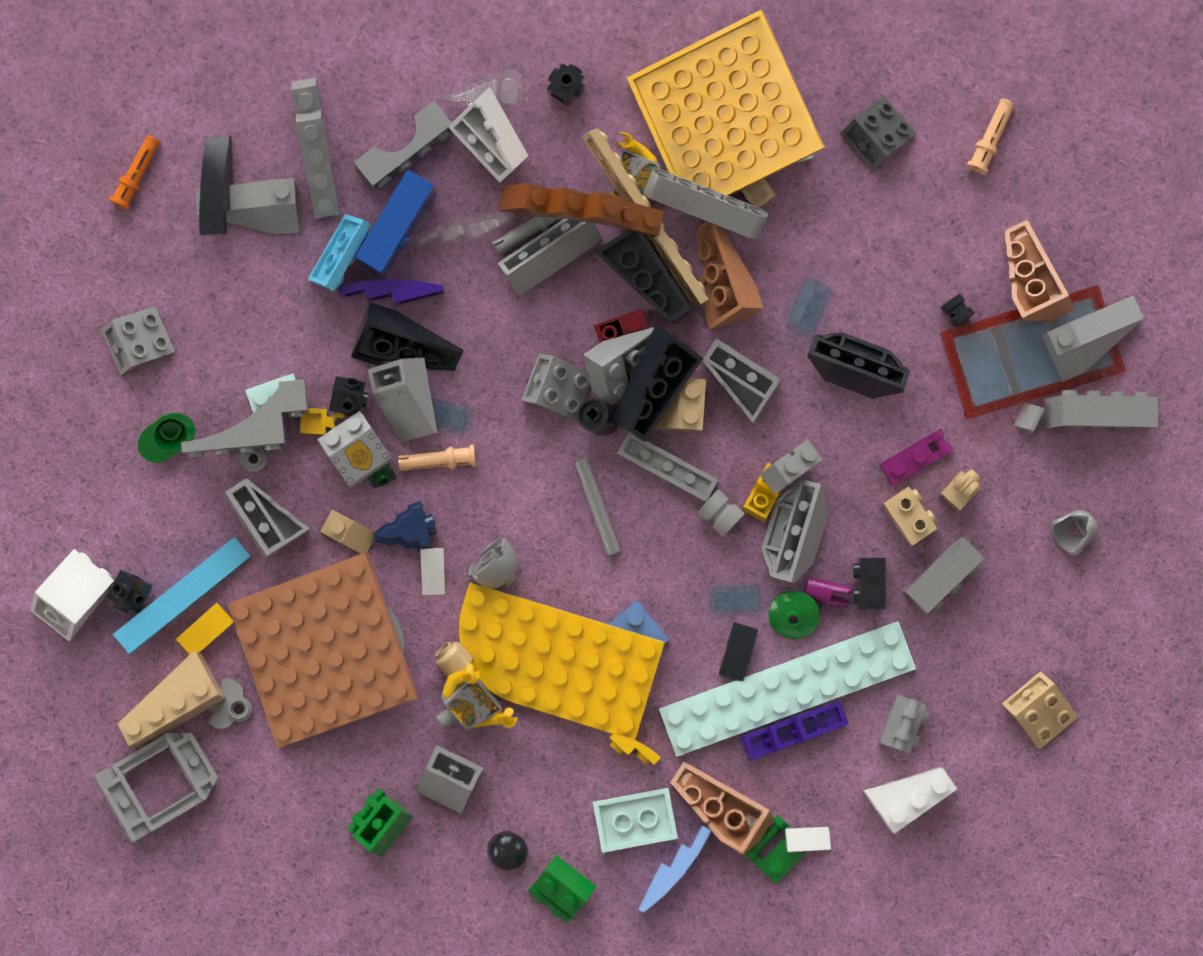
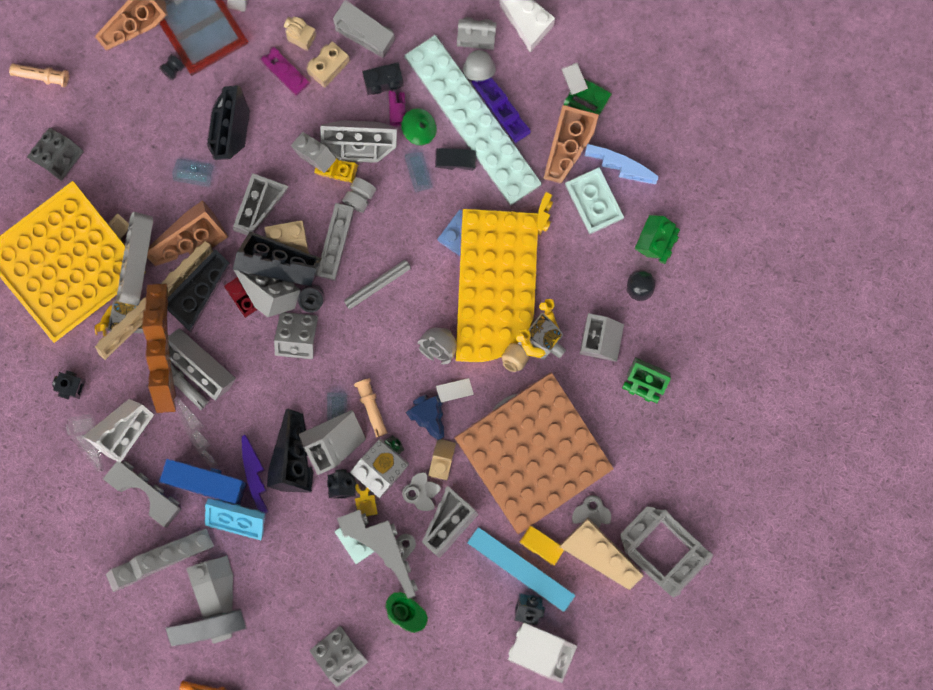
camera: 105 degrees left, 5 degrees down
(313, 498) = (424, 492): none -> light grey plate
(856, 716) = (479, 66): none -> light grey helmet

